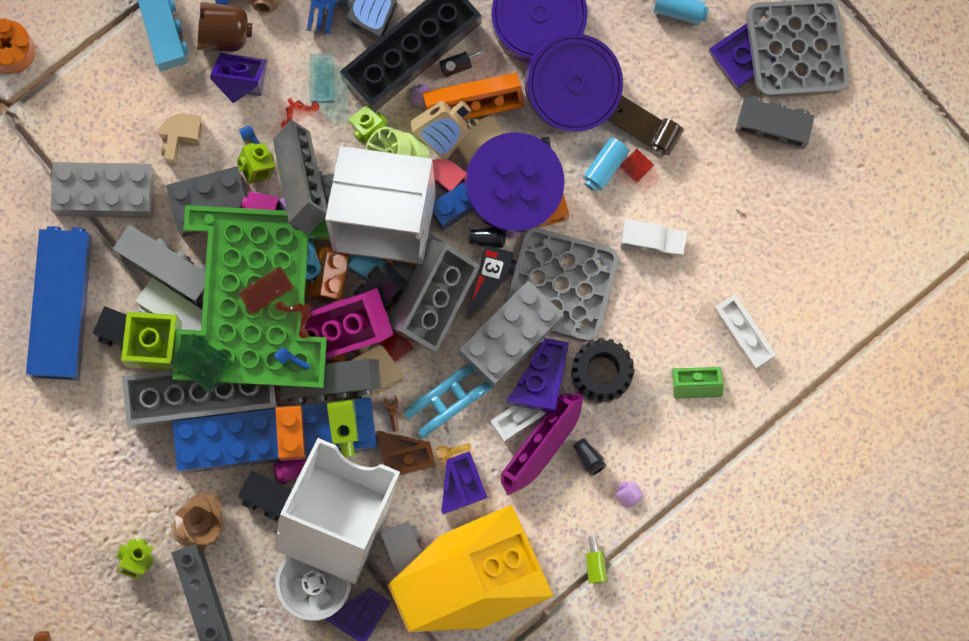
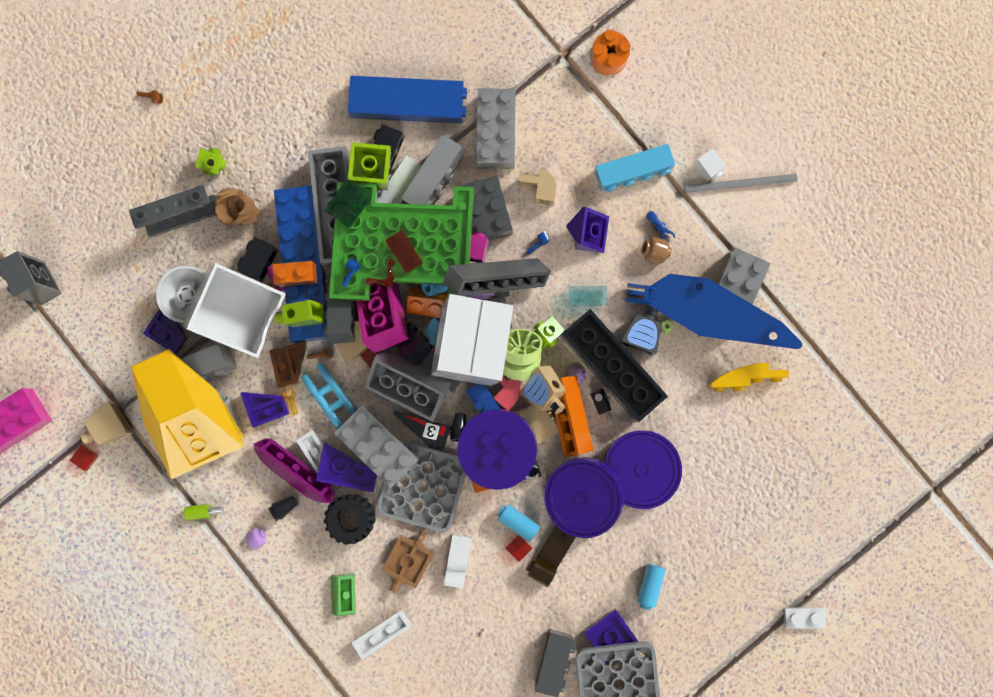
camera: 95 degrees right, 5 degrees up
(222, 27) = (627, 216): reddish brown cylinder -> none
(256, 162) = (517, 245): lime brick -> none
(298, 104) = (567, 277): clear red piece -> none
(654, 299) = (408, 561): none -> medium nougat plate

